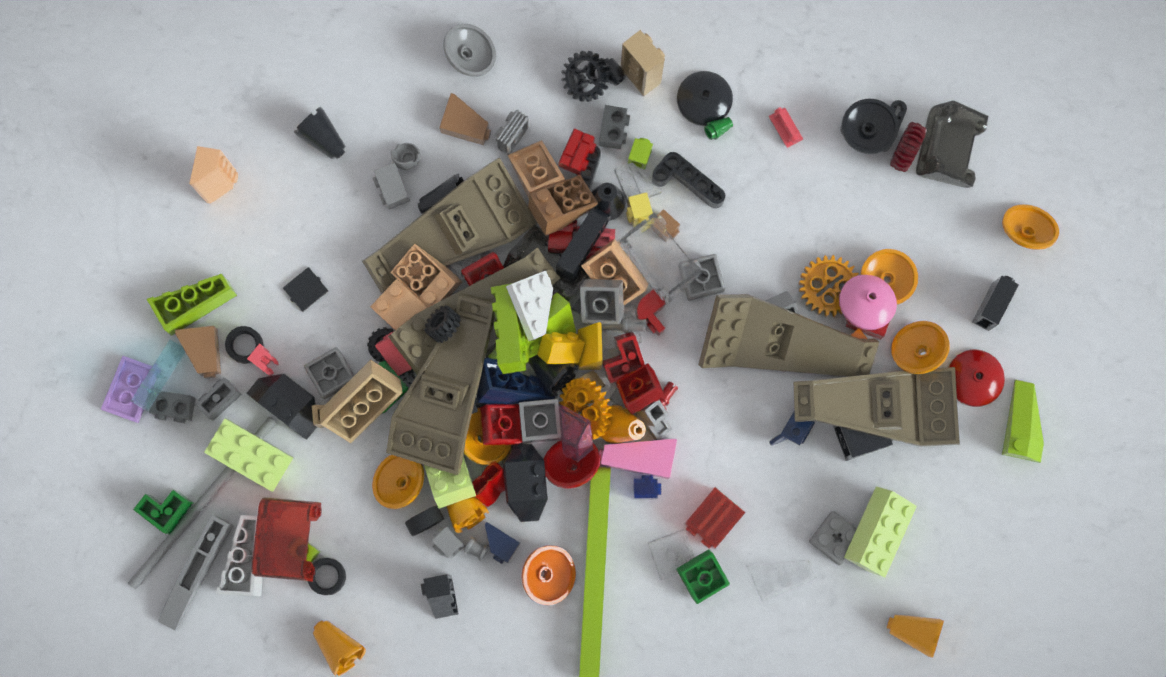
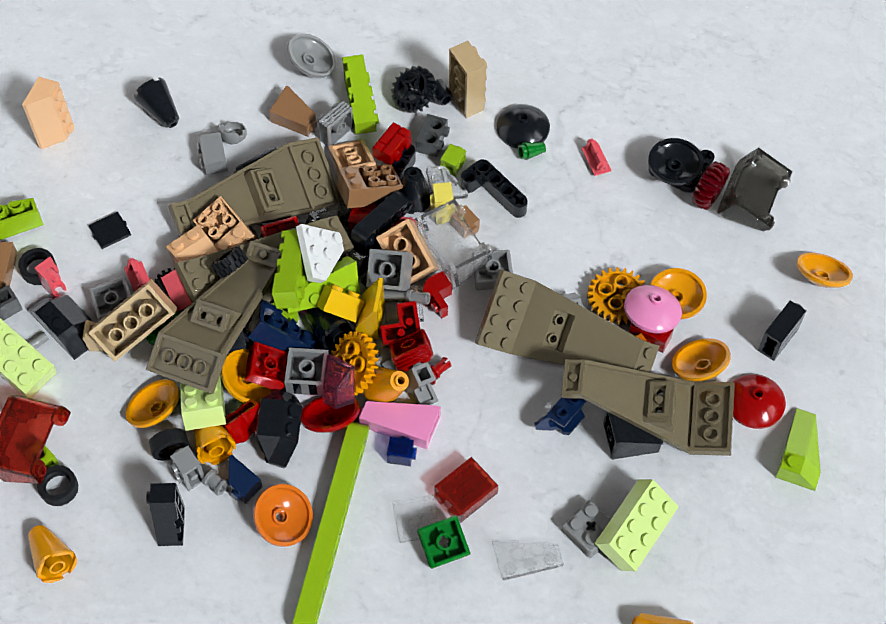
camera: 10 degrees right, 20 degrees down
(349, 341) = (136, 273): none -> coral hinge
(529, 91) = (360, 94): none -> lime wedge

